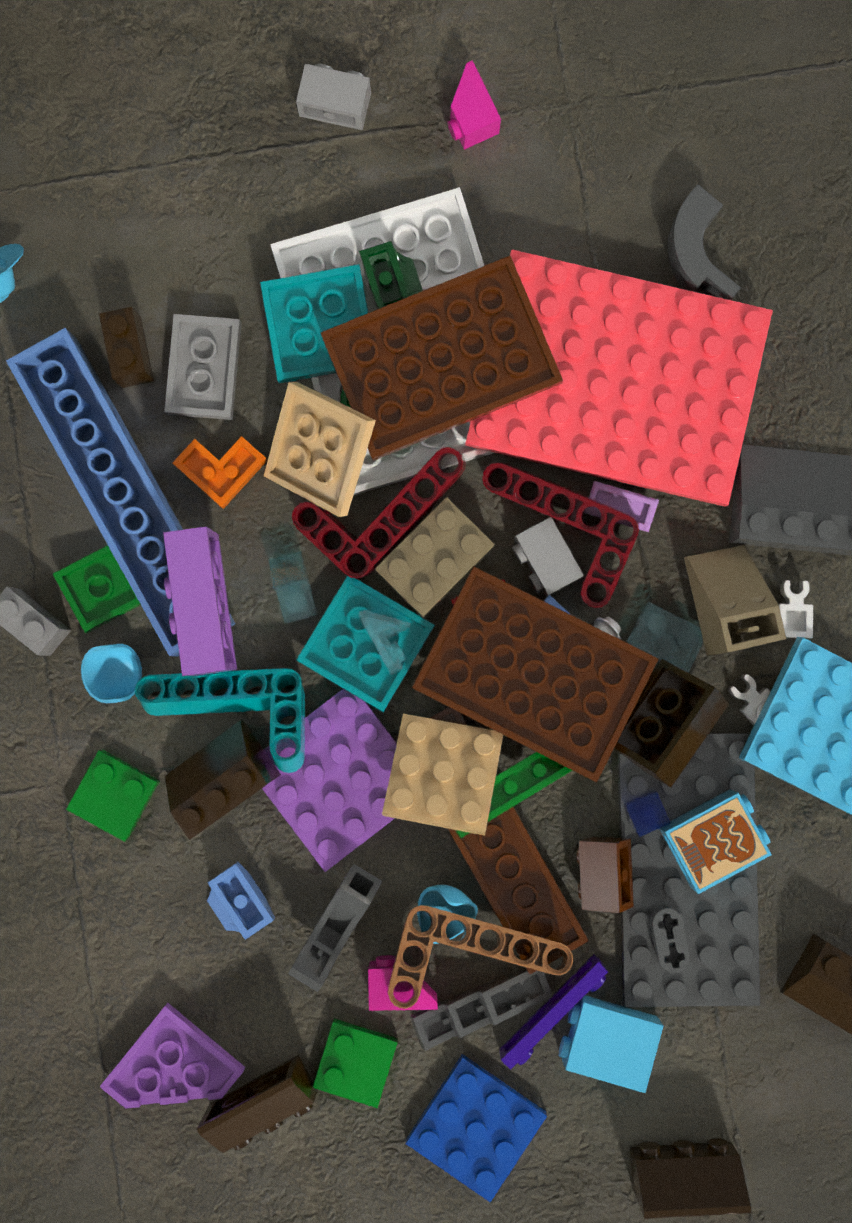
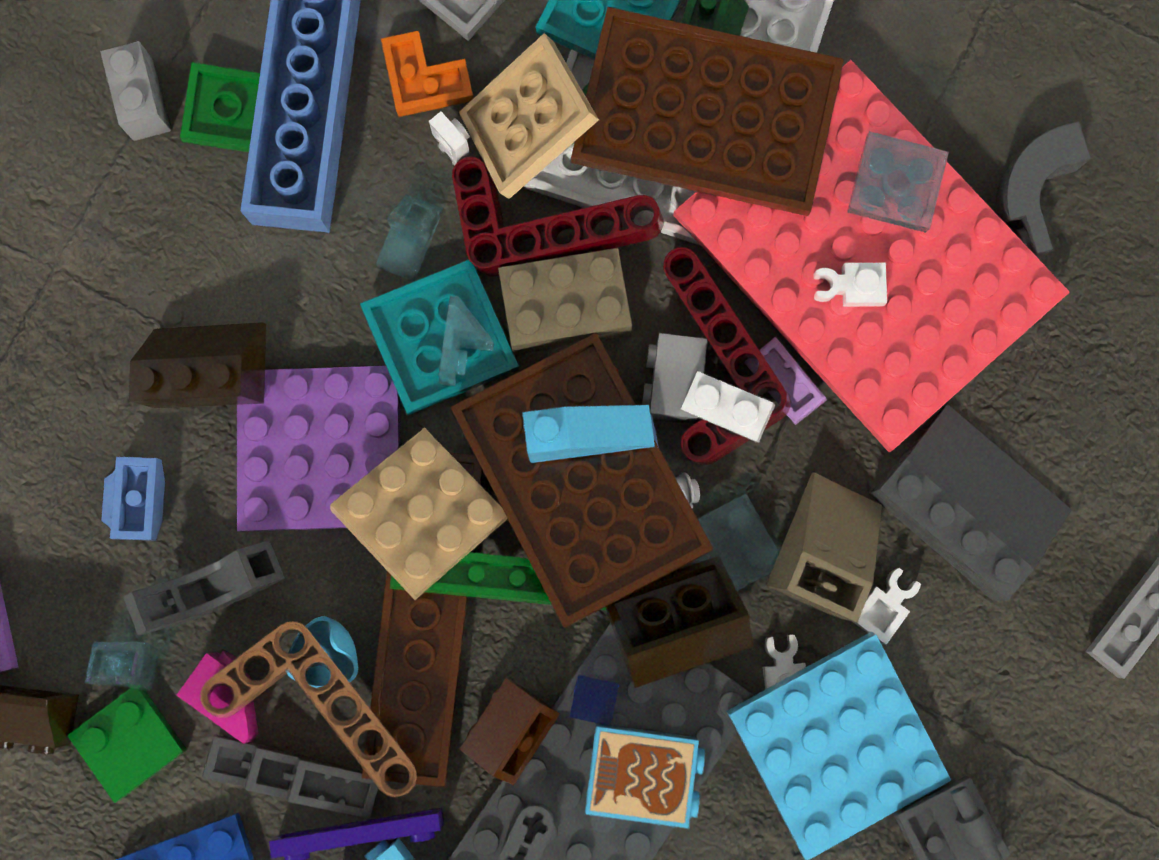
camera: 30 degrees right, 5 degrees down
(111, 672) = (177, 192): medium azure helmet -> none
(113, 795) = (92, 312): green plate -> none
(199, 601) = (303, 173): medium lavender brick -> none
(236, 700) = (276, 301): teal beam -> none
(275, 500) = (451, 137): none -> white plate
(314, 1017) = (122, 664): none -> clear light blue slope
(519, 639) = (586, 431): none -> medium azure slope
(600, 555) = (728, 406): none -> white plate
(606, 316) = (898, 182): none -> clear light blue plate
(628, 407) = (859, 284): none -> white plate

